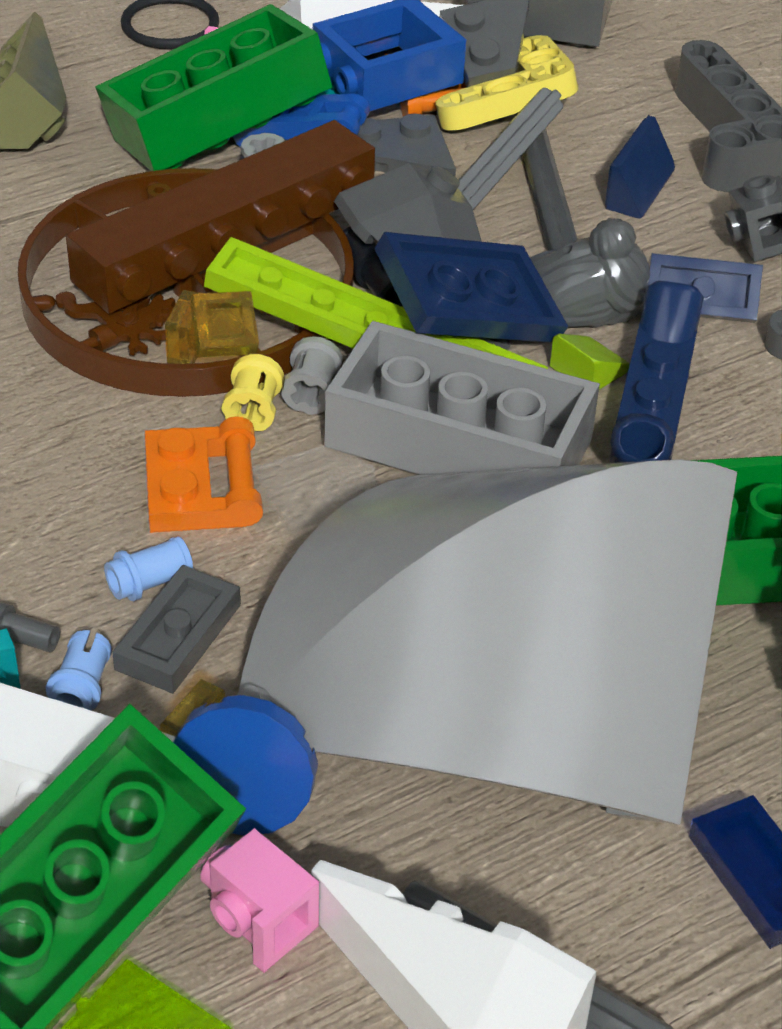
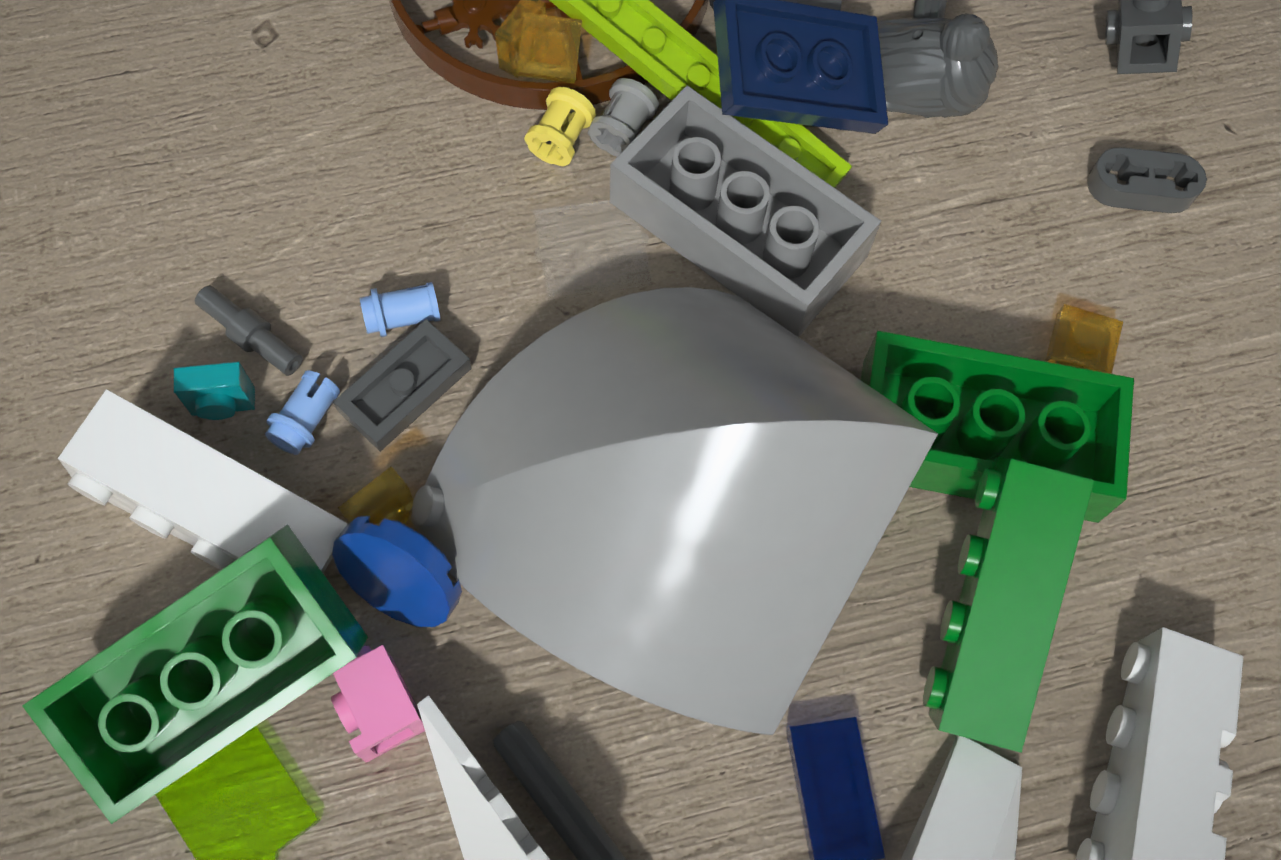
camera: 15 degrees right, 25 degrees up
(181, 477) = (466, 205): orange plate -> none
(586, 359) = (899, 160): lime slope -> none
(657, 374) = (949, 216): dark blue plate -> none
(728, 287) = (1049, 99): dark blue panel -> none

